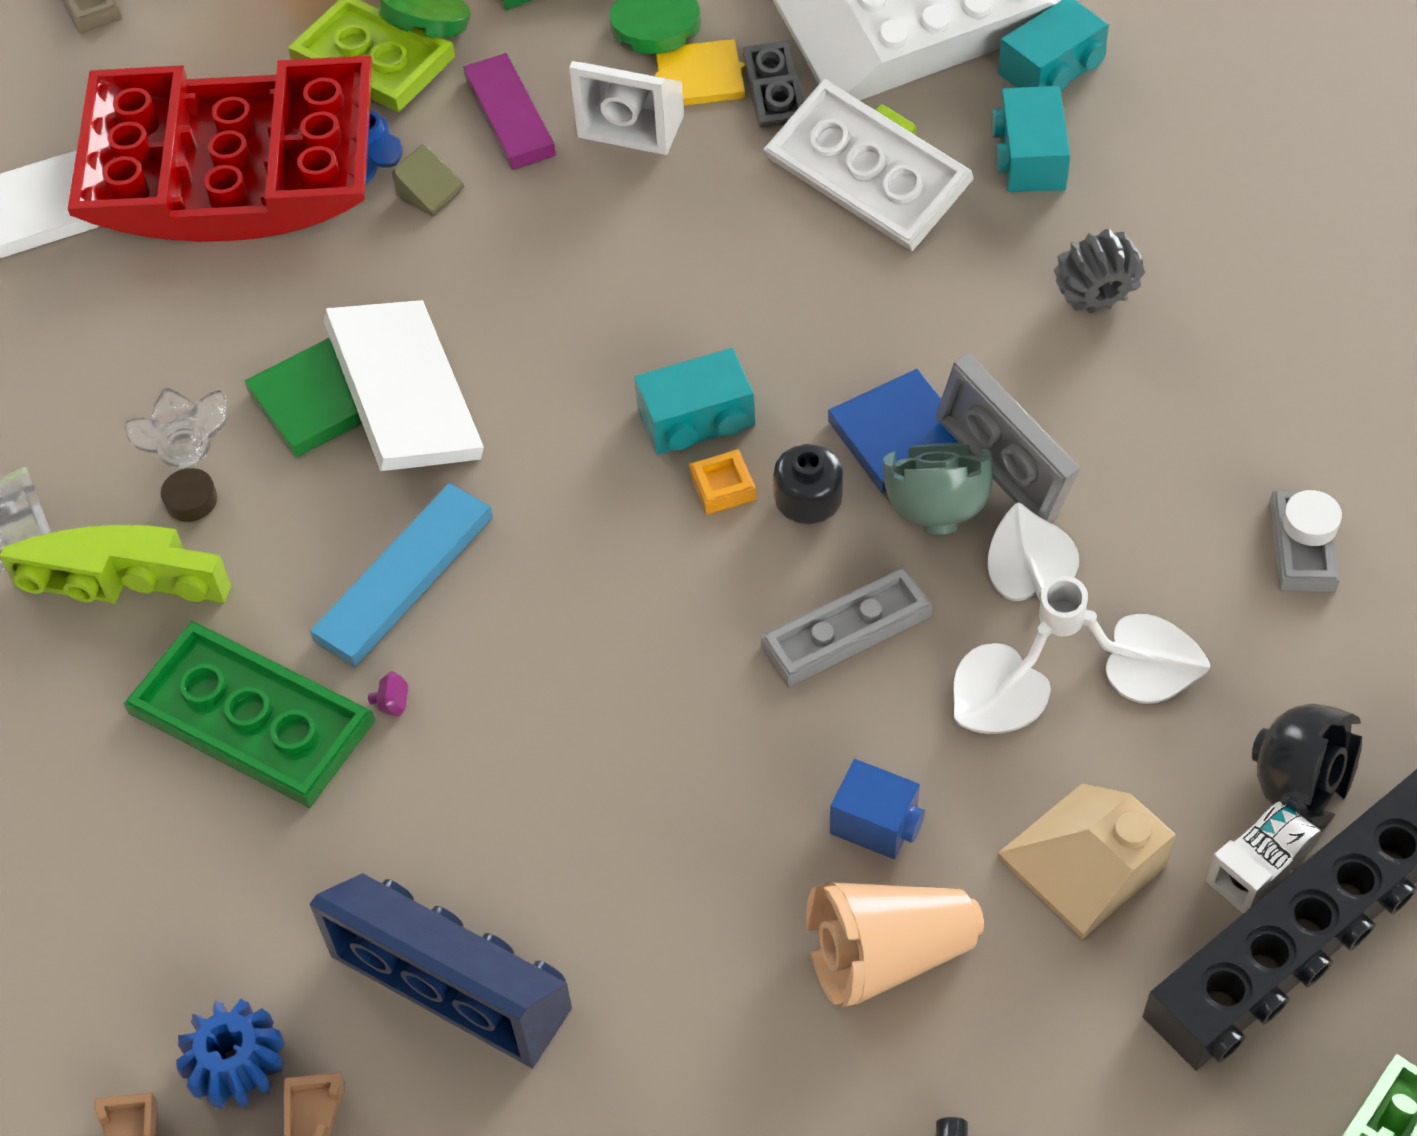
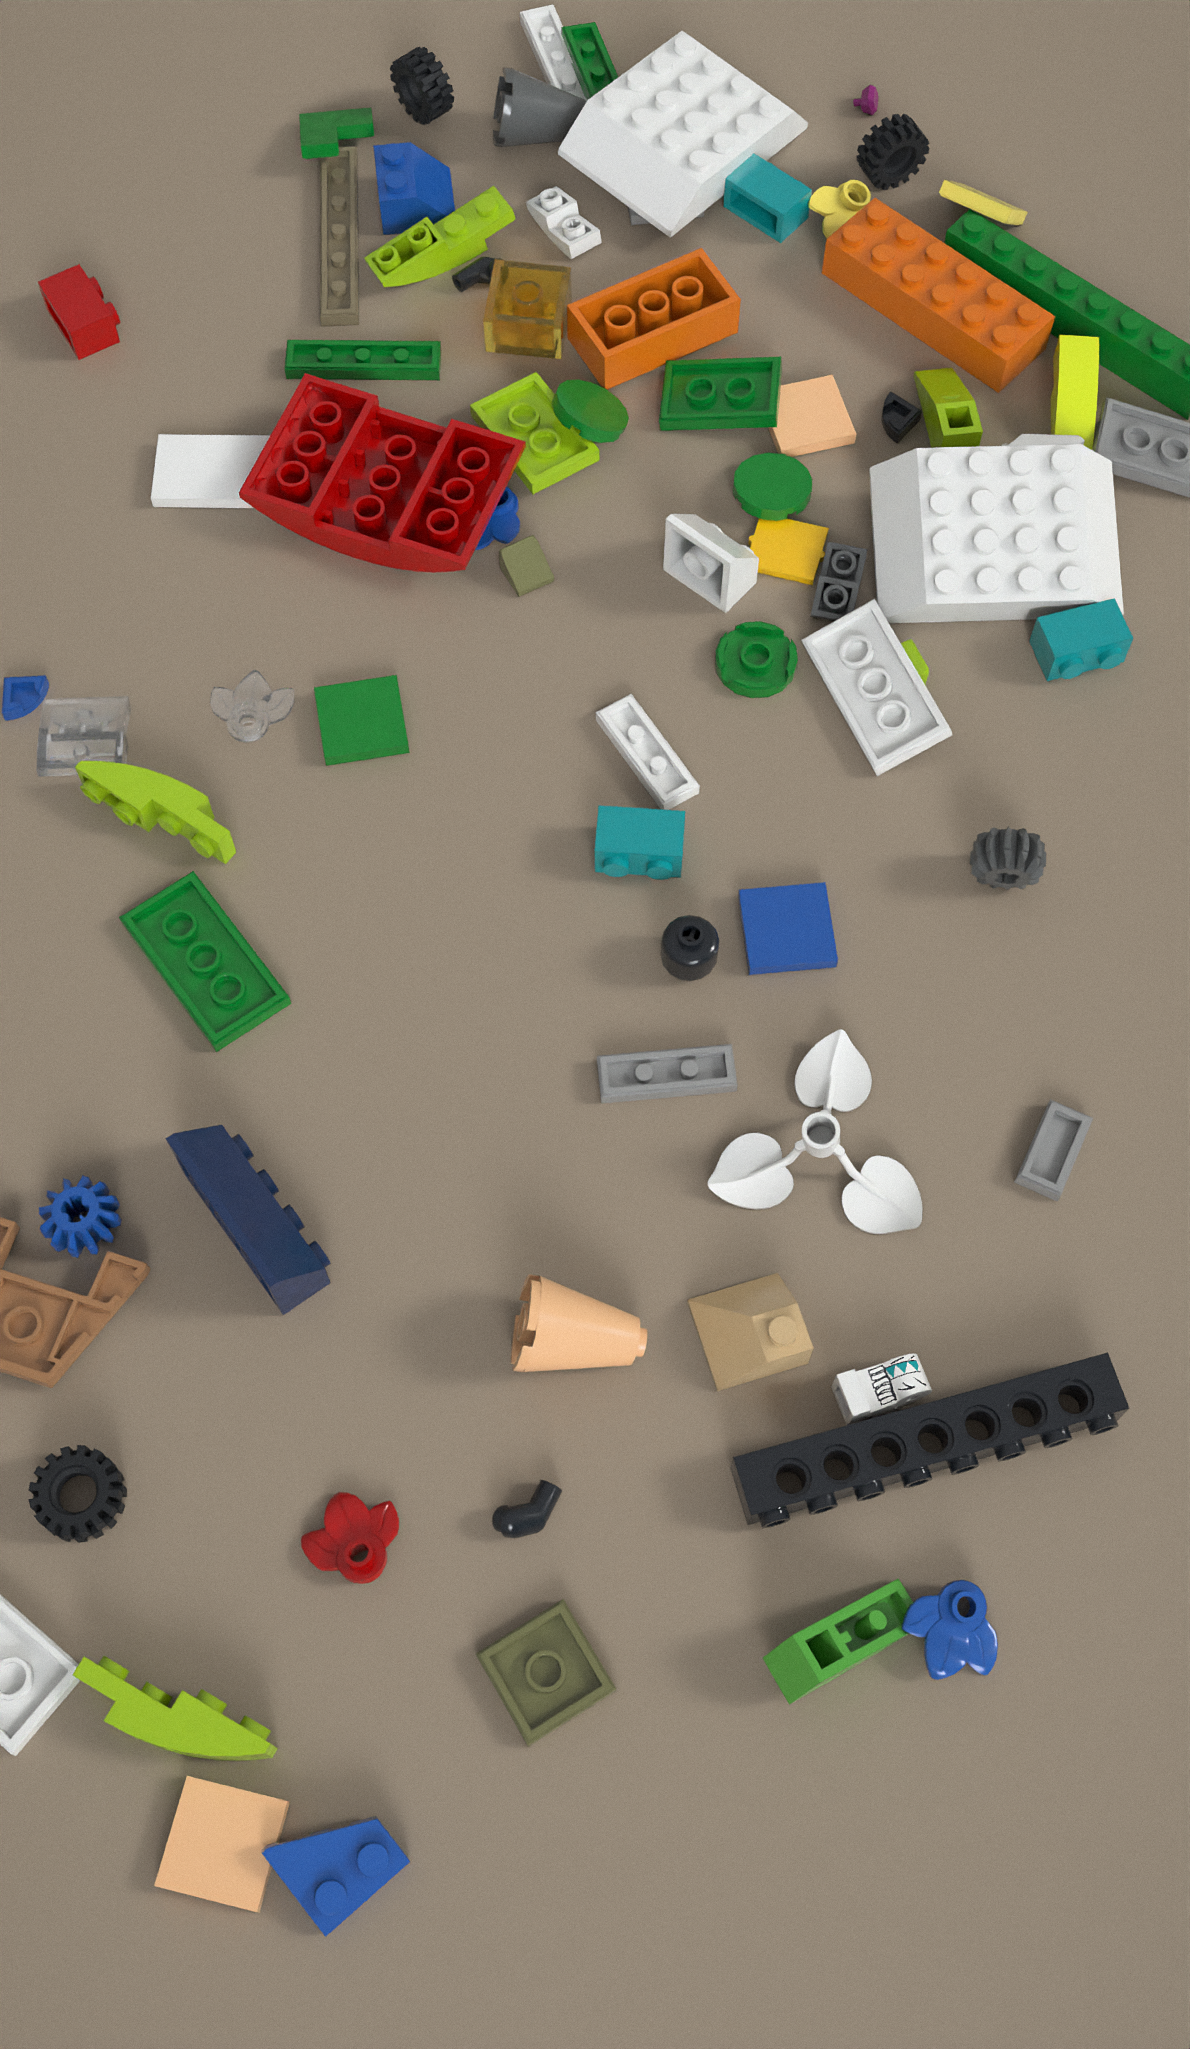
camera: 20 degrees right, 10 degrees up
(145, 46) = (363, 359): none -> green tile
(189, 494) = (235, 766): dark brown tile -> none
(391, 694) = (309, 989): magenta rock -> none
(401, 574) = (360, 894): dark azure tile -> none
(402, 385) = (427, 738): white tile -> none
(509, 111) = (618, 526): magenta tile -> none
(653, 314) = (647, 753): none -> white tile
(722, 481) = (631, 916): light orange tile -> none
(724, 186) = (756, 660): none -> green tile
(876, 809) = (612, 1229): blue brick -> none
(939, 485) = (787, 989): sand green cylinder -> none
(1023, 454) = (851, 978): light grey tile -> none
(1033, 139) = (1020, 715): teal brick -> none
(1308, 758) = (949, 1330): black cylinder -> none
(1312, 518) = (1064, 1137): white tile -> none

